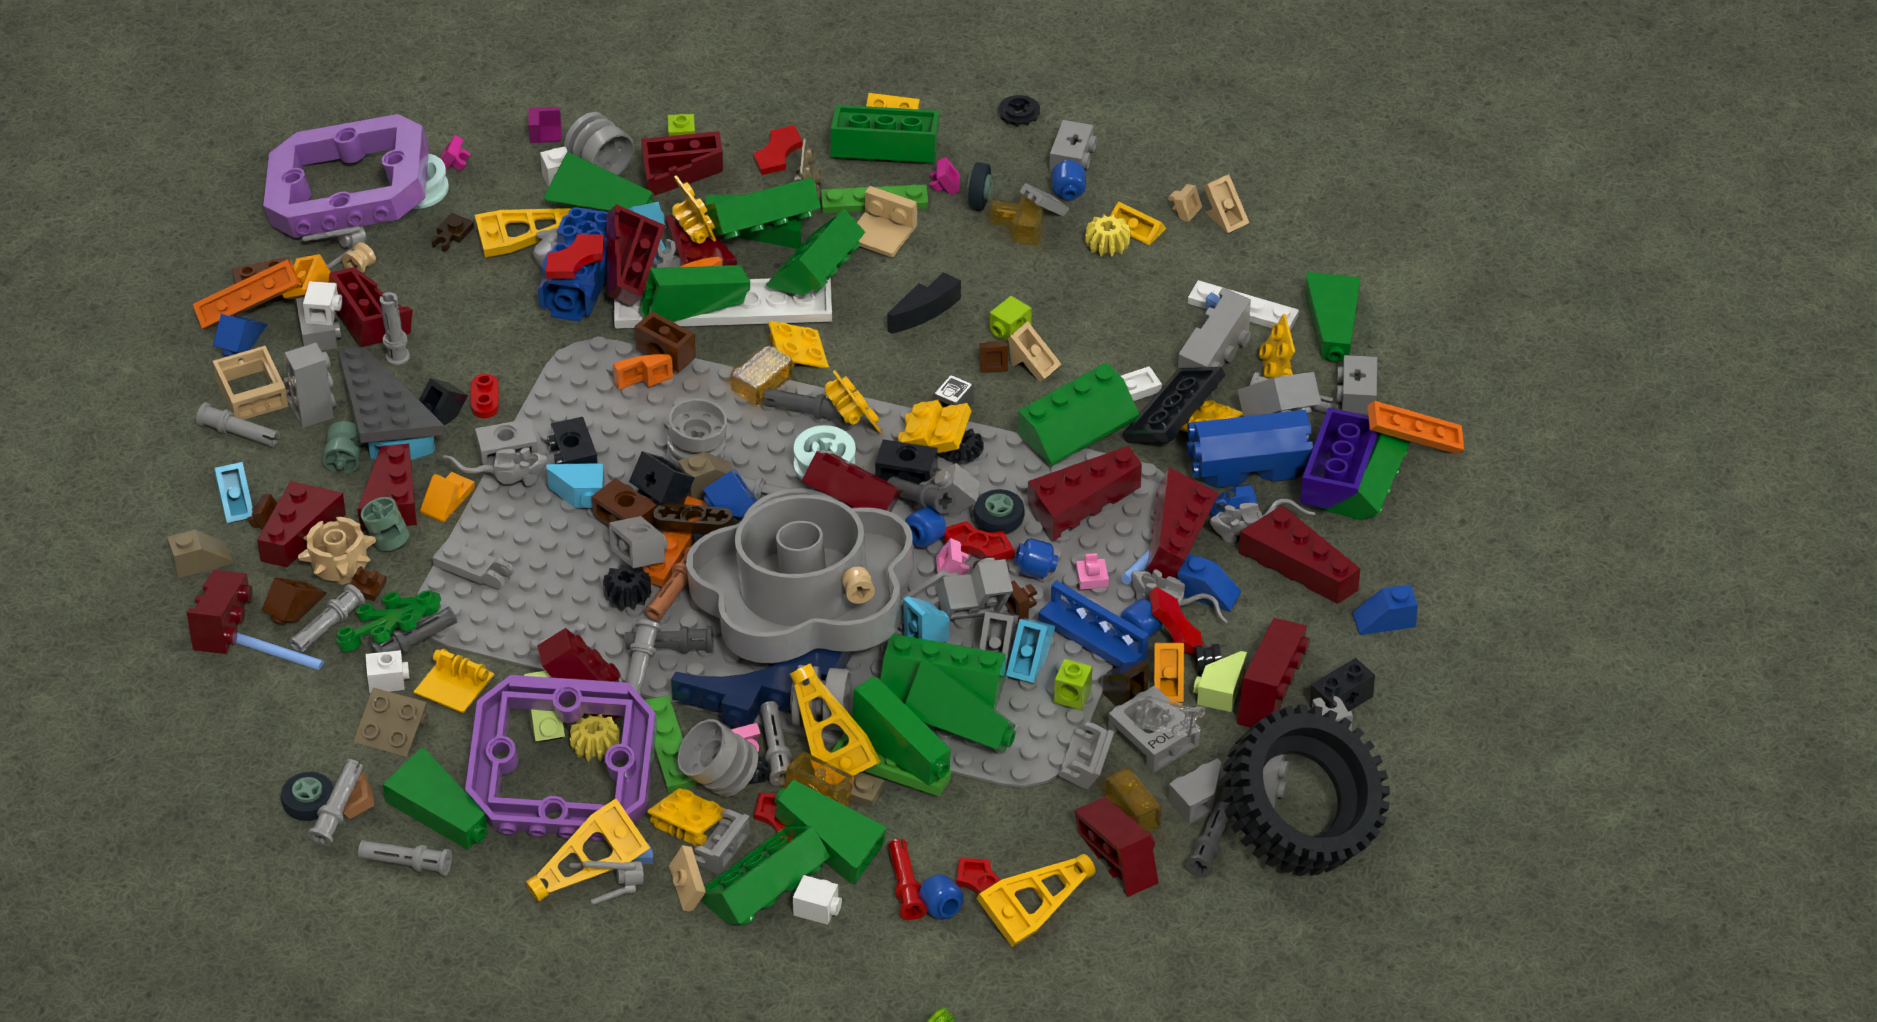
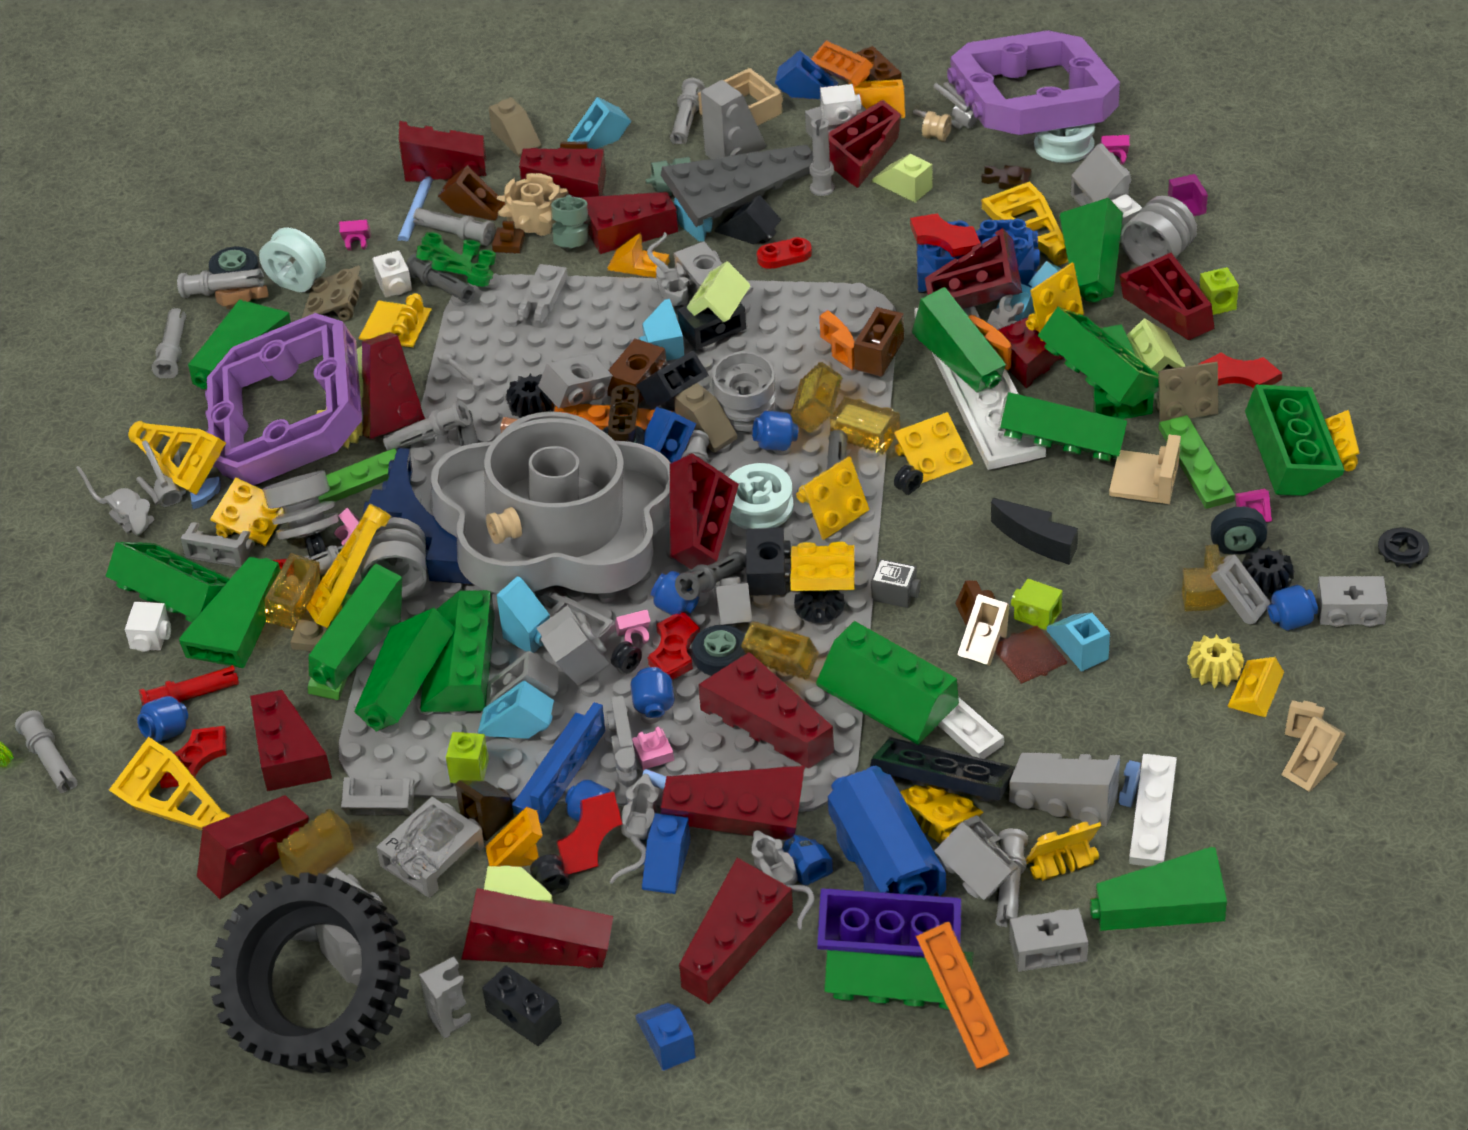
camera: 80 degrees right, 0 degrees up
(303, 694) = (354, 231): none -> dark pink tile
(343, 734) = (283, 246): none -> light aqua wheel
(425, 290) = (907, 177): none -> yellowish green slope
(514, 167) = (1099, 177): none -> light grey slope
(562, 425) = (720, 292): none -> yellowish green panel
(643, 906) = (126, 508): none -> light grey animal
(687, 878) = (164, 528): tan plate -> none
(725, 391) = (816, 397): none -> clear yellow brick
(730, 187) = (1154, 346): none -> yellowish green panel
(745, 431) = (774, 430): none -> blue head
(828, 365) = (908, 479): none -> black bush
(936, 990) = (41, 742): none -> light grey pin
(1000, 812) = (286, 744): none -> dark red wedge
(1016, 178) = (1269, 569): none -> black gear
(1021, 600) = (585, 690): reddish brown tile -> none
(1023, 466) = (781, 649): none -> clear yellow brick
(1058, 300) = (1082, 639): none -> medium azure slope
(1060, 338) = (1029, 654): none -> clear red piece
(1087, 583) = (622, 742): none -> light grey hinge

